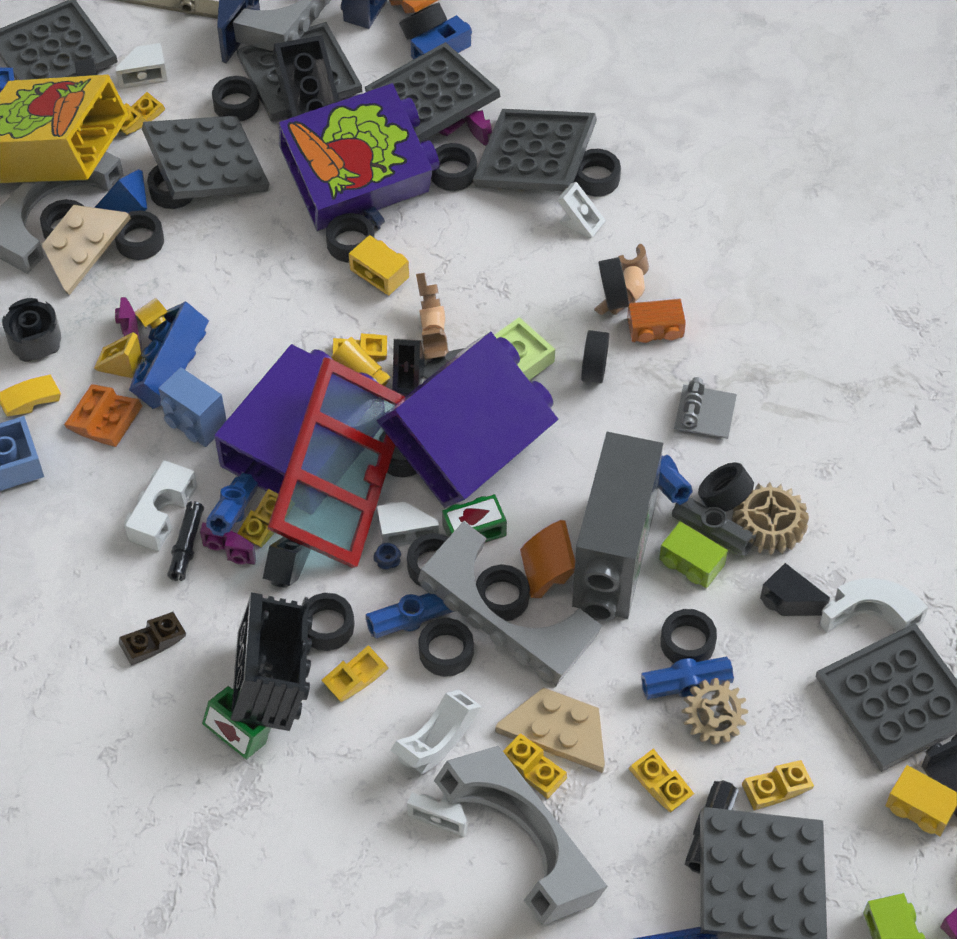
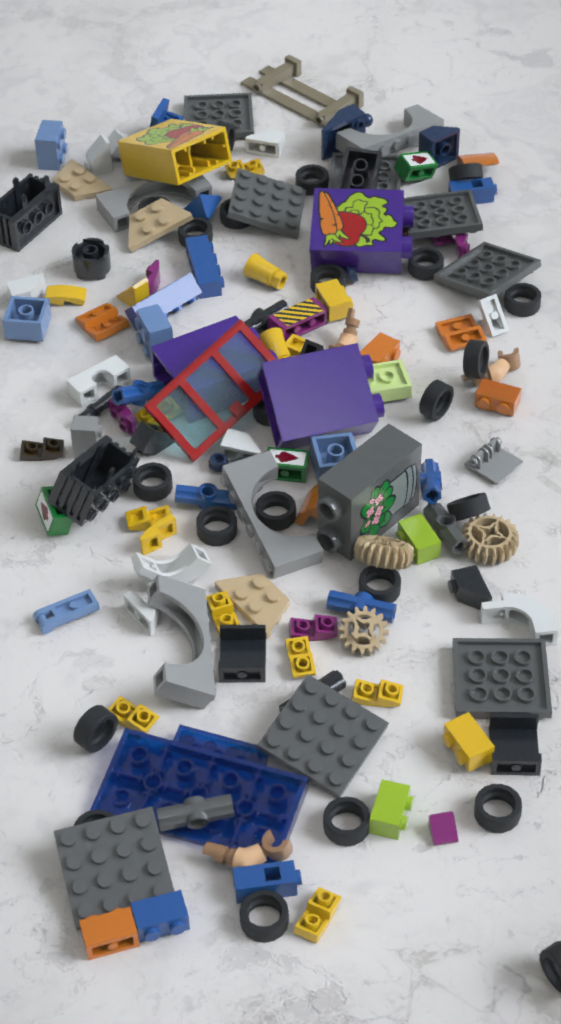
camera: 30 degrees right, 10 degrees down
(151, 313) = (168, 276): yellow slope -> none
(182, 278) = (204, 267): none -> blue brick
(210, 598) = (85, 433): none -> light grey brick
(268, 258) = (264, 272): none -> yellow plant
(312, 323) = (259, 317): none -> black piece
(342, 855) = (66, 611): none -> medium blue plate
(353, 310) = (300, 318): none -> brick
(354, 32) = (415, 166): none -> green brick
(383, 696) = (153, 536): none -> yellow slope
(482, 315) = (382, 349): none -> orange brick
(529, 489) = (329, 450): none -> medium blue brick
(553, 248) = (458, 331): none -> orange slope
(593, 810) = (242, 653): none -> black panel
(653, 732) = (318, 629): none -> magenta slope
(673, 595) = (383, 552): none -> tan gear

